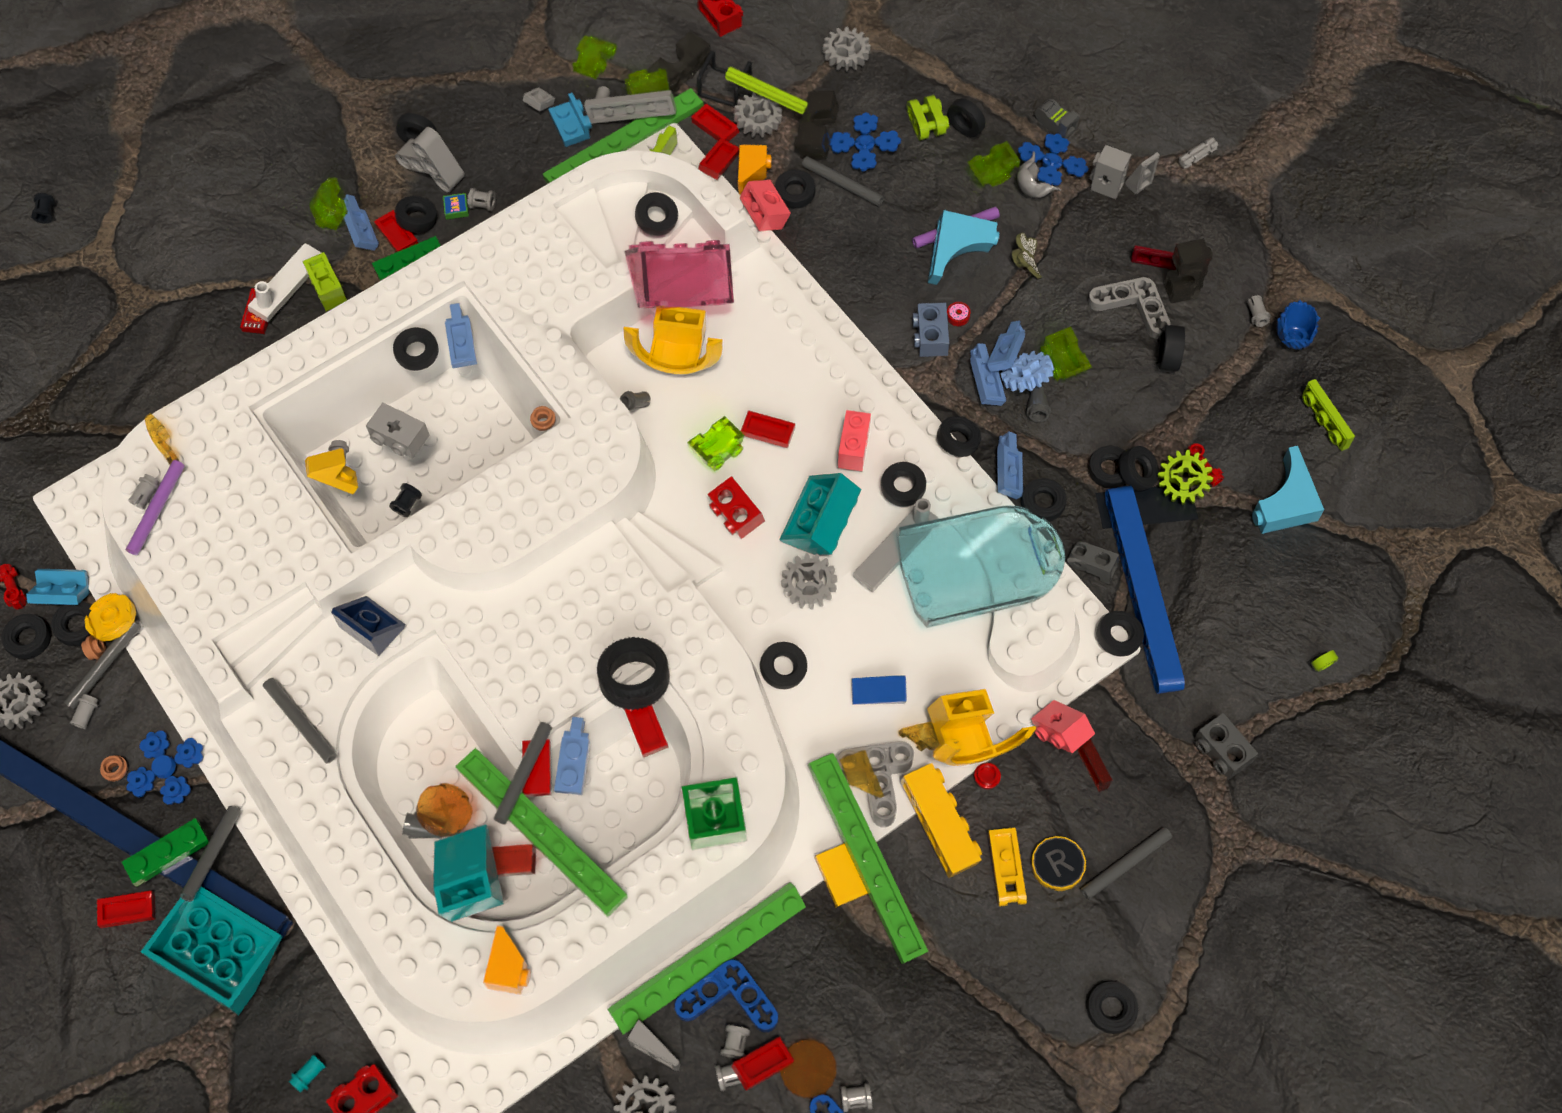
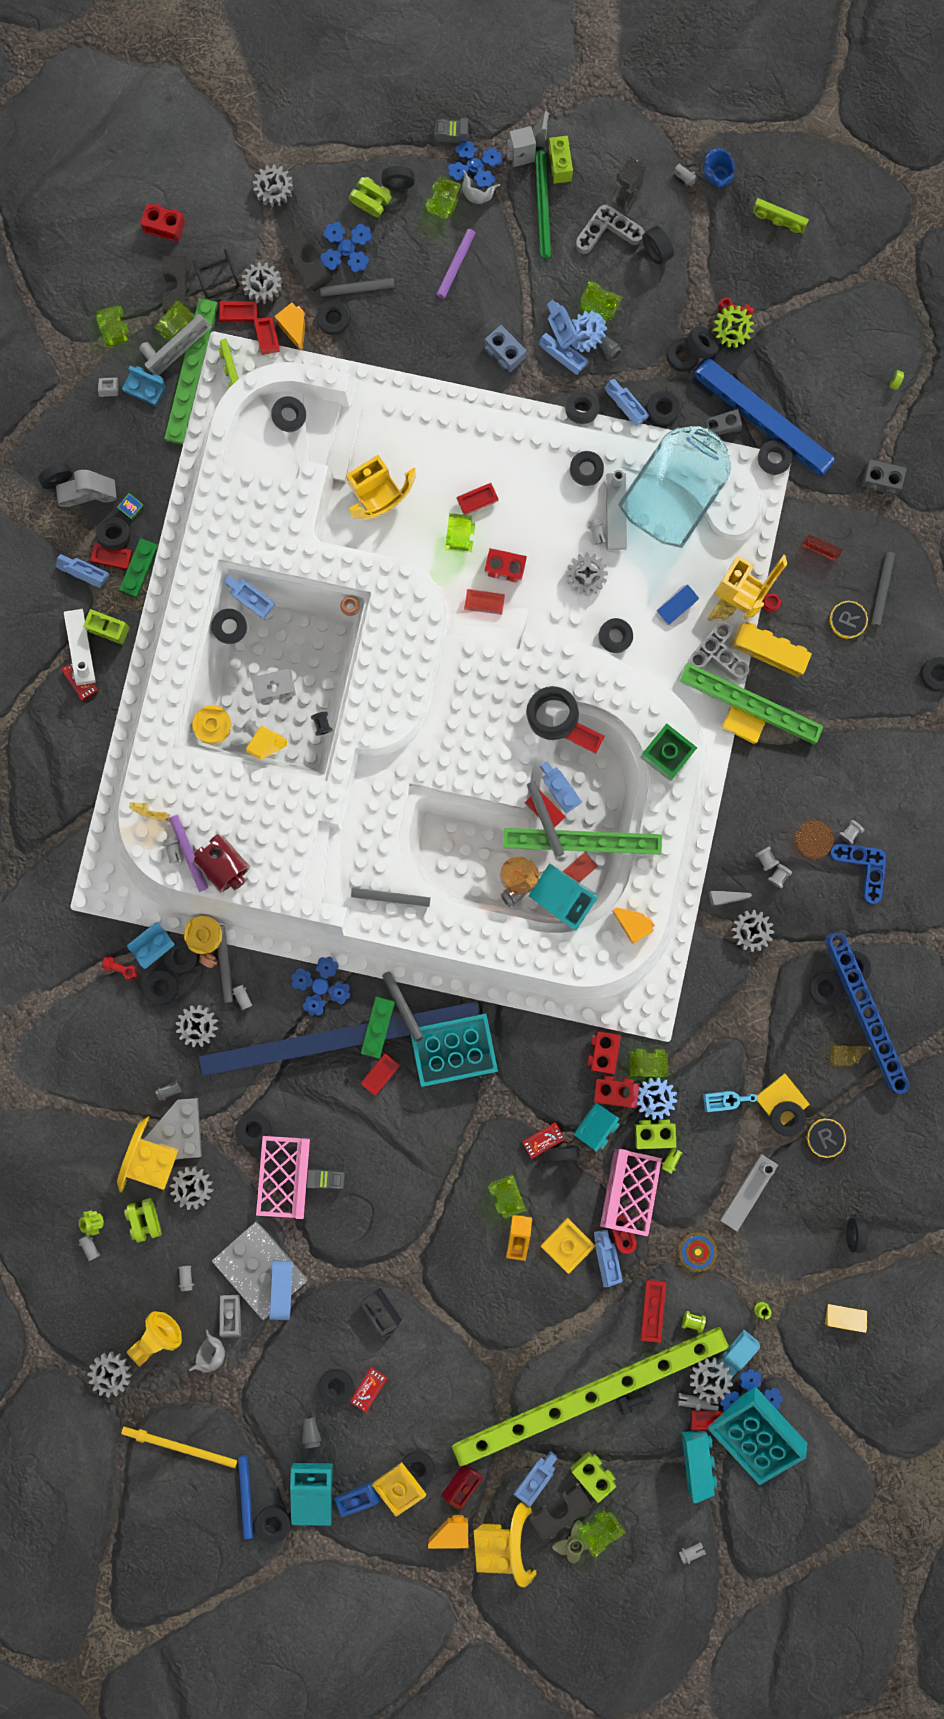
camera: 45 degrees left, 20 degrees up
(110, 762) = (286, 1011): nougat plate -> none
(167, 536) = (224, 871): none -> dark red cylinder
(306, 1074) = (563, 1066): teal pin -> none
(309, 421) = (212, 724): none -> yellow tile
(327, 206) = (52, 575): clear neon green cylinder -> none
(368, 623) = (375, 811): dark blue slope -> none
(487, 200) = (144, 489): light grey bush -> none
(634, 400) = (383, 546): dark grey pin -> none
(680, 274) = (346, 443): clear pink windscreen -> none
(681, 525) = (484, 601): none -> clear red tile
(706, 958) = (713, 828): bright green plate -> none
(725, 987) = (735, 835): blue beam -> none
(762, 1063) = (793, 857): red tile -> none
(765, 205) = (328, 346): coral brick -> none
(766, 90) = (257, 262): lime axle -> none
(821, 513) = (557, 527): teal slope -> none
(854, 440) = (537, 465): coral brick -> none
(857, 549) = (596, 531): none -> light grey pin
(860, 774) = (712, 661): clear yellow slope -> none
(958, 314) = (510, 323): tile -> none
(959, 235) = (465, 273): medium azure arch -> none
(1007, 866) = (824, 644): yellow plate -> none
(1024, 254) = (516, 251): olive animal -> none
(1062, 726) = (792, 540): coral brick -> none
(1088, 238) = (542, 204): none -> green axle
(1140, 211) = (560, 159): none -> lime brick
(1153, 257) = (594, 185): dark red slope -> none
(1198, 153) = (558, 85): light grey axle -> none
(1294, 503) = (804, 289): medium azure arch -> none

